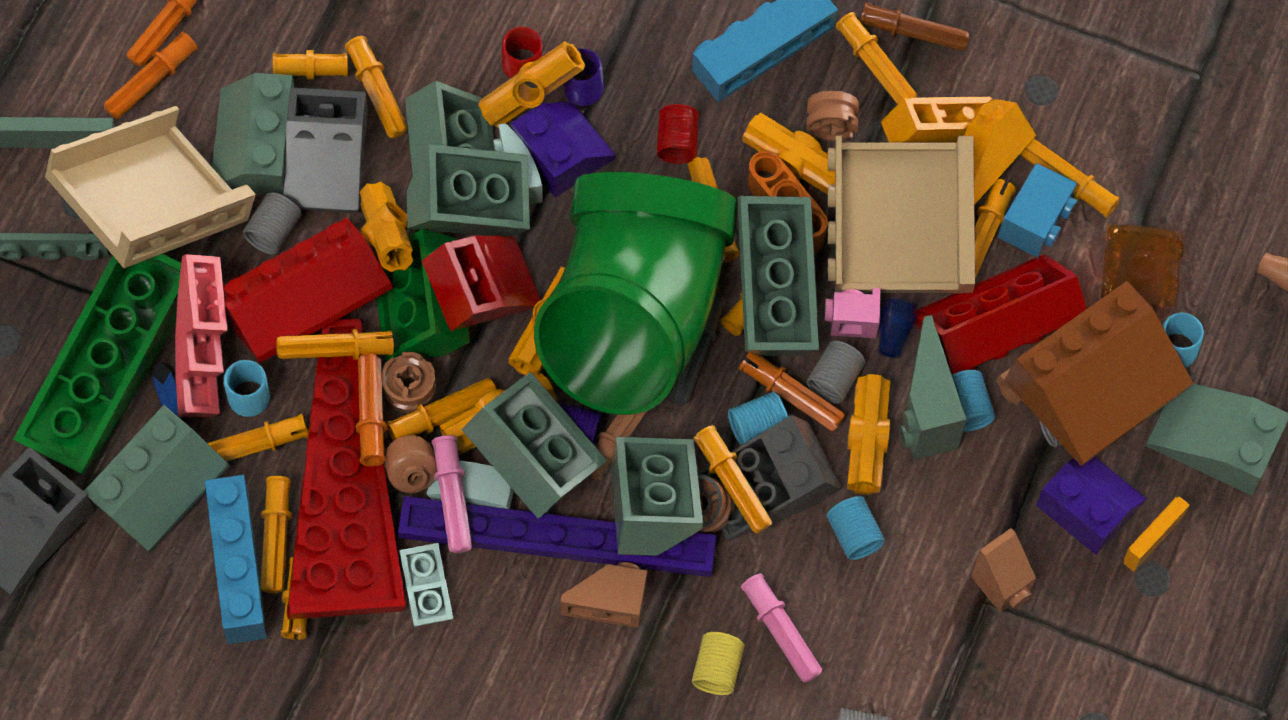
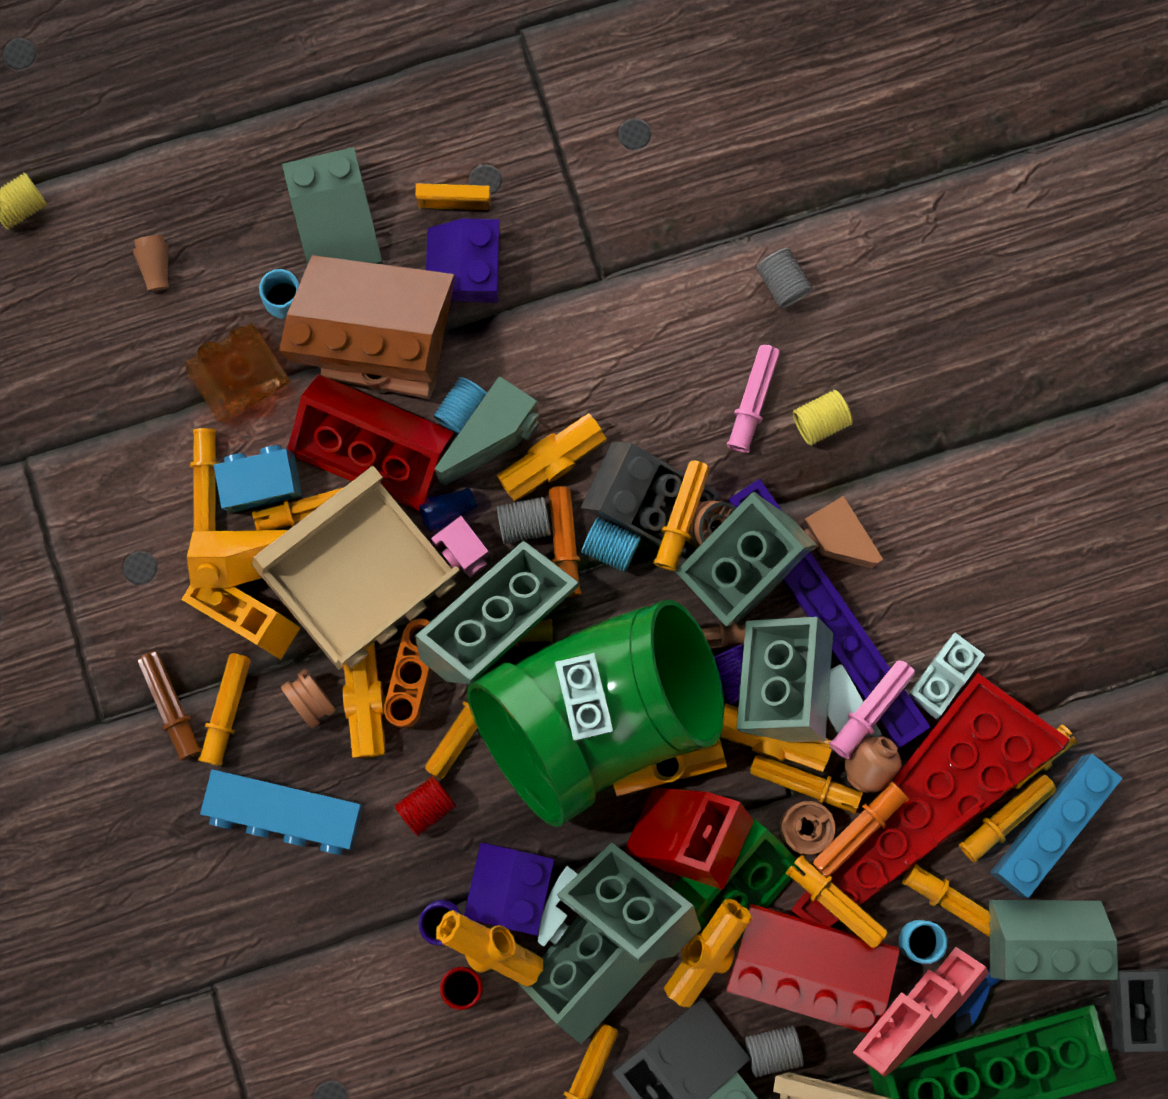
camera: 130 degrees left, 15 degrees up
(652, 240) = (583, 696): none -> light aqua slope
(855, 528) = (635, 406): medium azure piece -> none
(1004, 572) = (580, 273): nougat slope -> none

